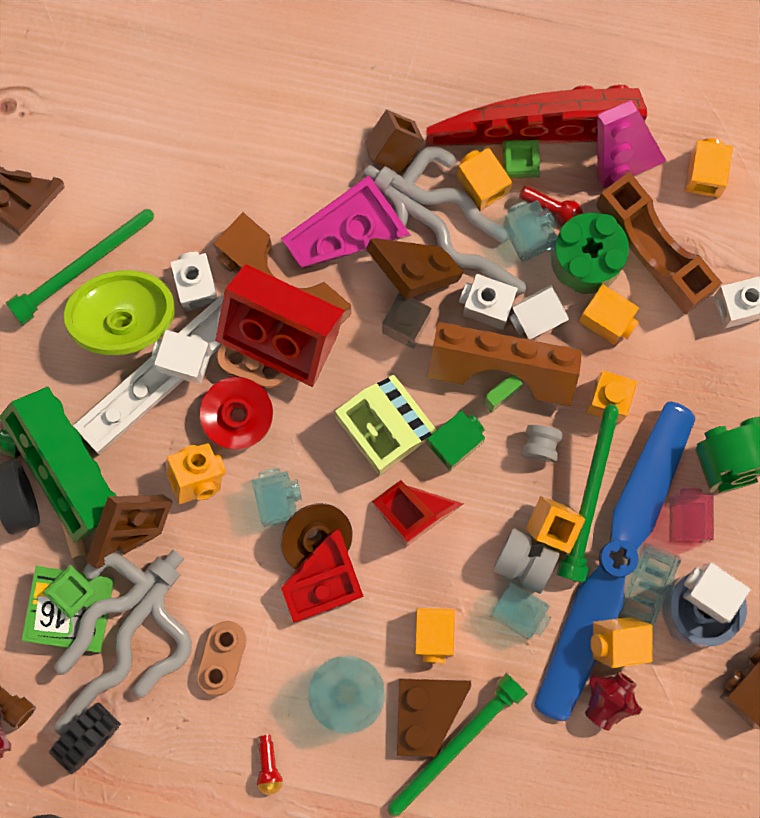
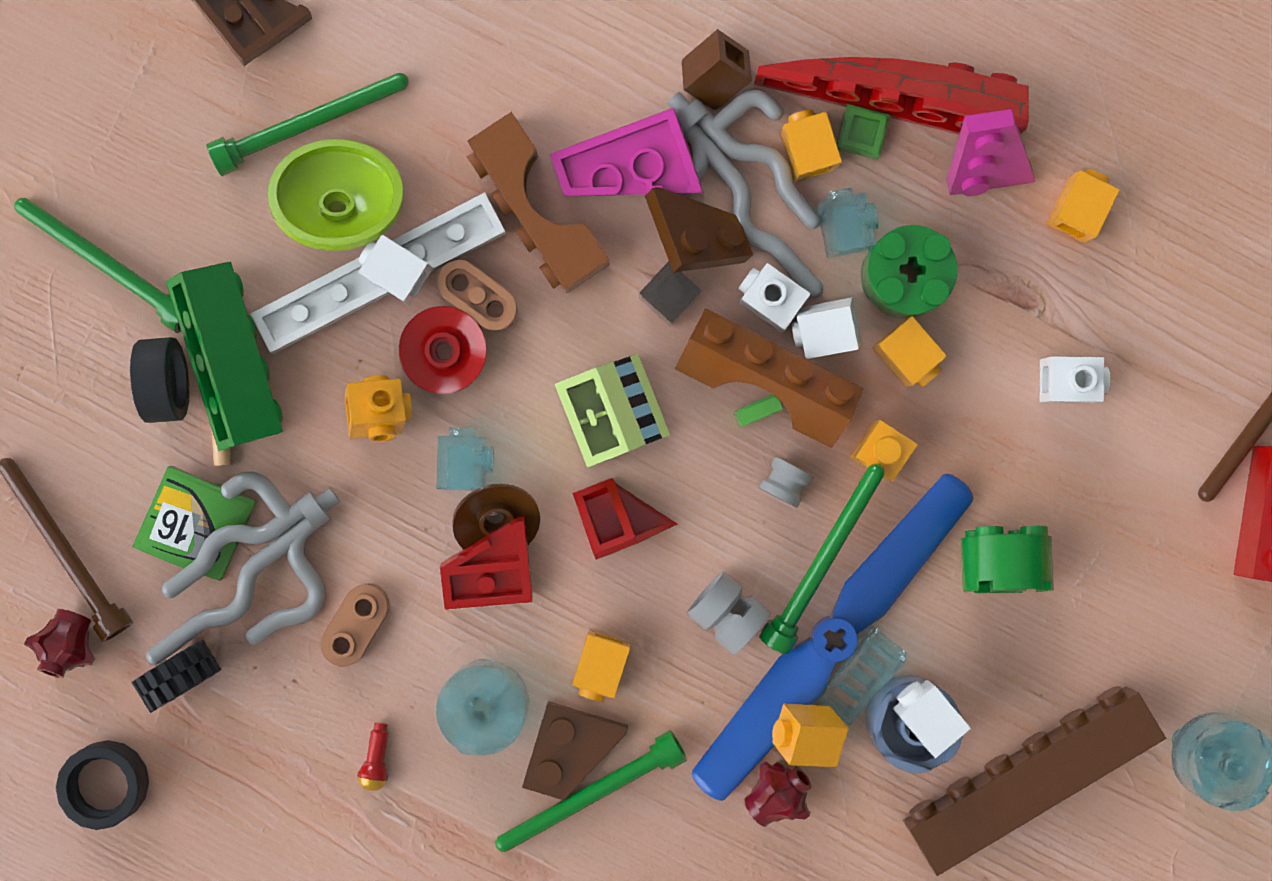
camera: 20 degrees right, 10 degrees up
(70, 591) = (199, 507): bright green tile -> none
(126, 524) = (282, 448): reddish brown wing -> none
(194, 281) = (434, 177): white brick -> none
(278, 324) = (516, 261): red slope -> none
(456, 439) = (690, 450): green brick -> none
(521, 612) = (705, 668): clear light blue brick -> none
(555, 524) = (772, 581): light orange brick -> none
(562, 210) = (895, 211): red bar -> none
(679, 272) = (1003, 317): dark orange arch -> none
(691, 517) = (932, 614): clear pink brick -> none

